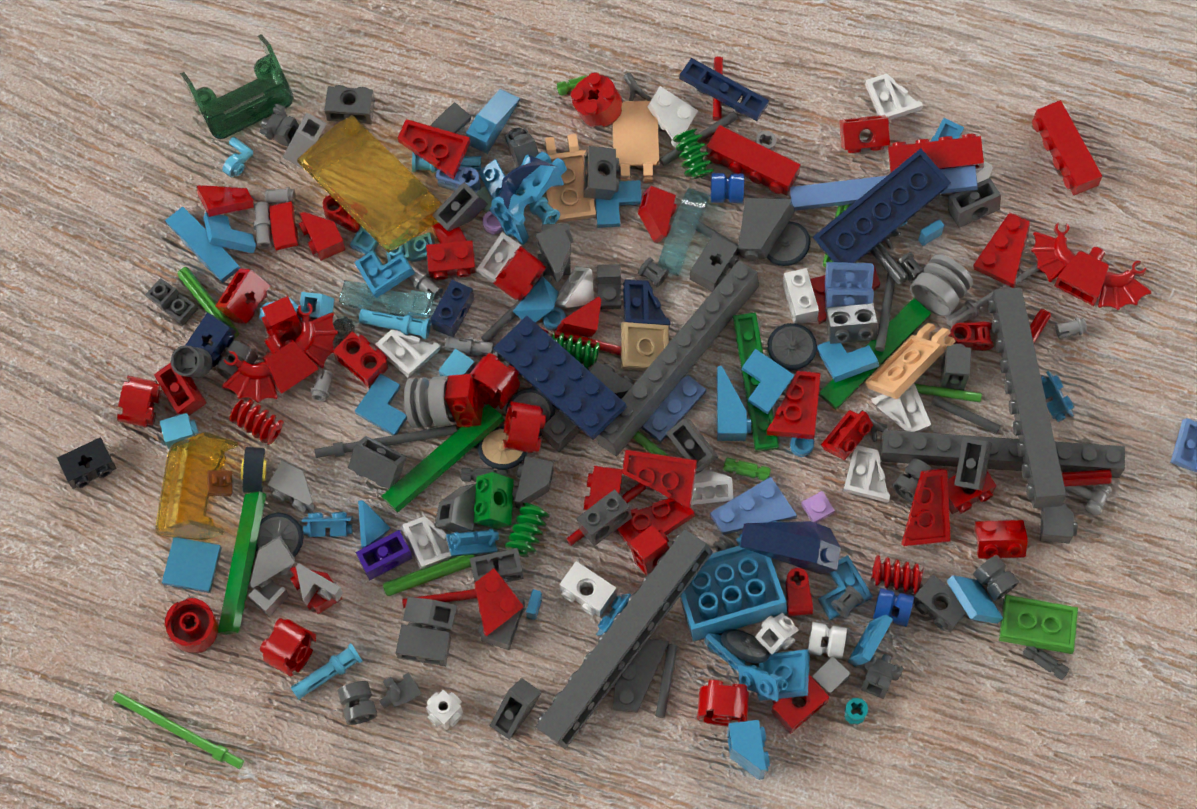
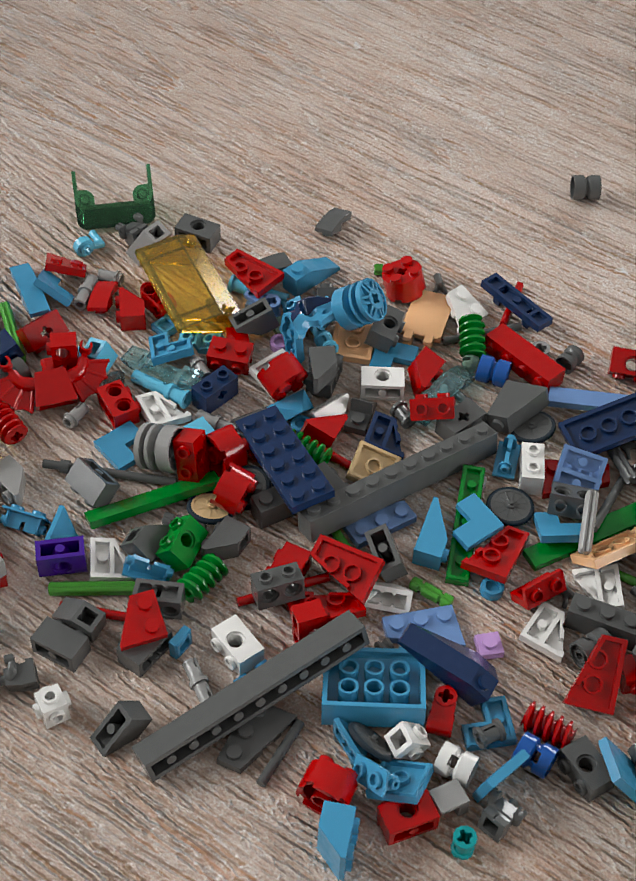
camera: 15 degrees right, 20 degrees down
(490, 38) = (332, 221): none -> dark grey slope
(567, 639) = (198, 681): none -> light grey pin
(569, 164) = (359, 304): none -> dark azure wheel
(610, 250) = (382, 383): none -> white brick
(682, 259) = (427, 408): none -> red bracket
(701, 184) = (470, 362): none -> sand green hinge
(771, 290) = (506, 458): none -> dark azure hinge
(799, 146) = (570, 358): none -> dark grey wheel
(875, 349) = (588, 522): none -> light grey axle

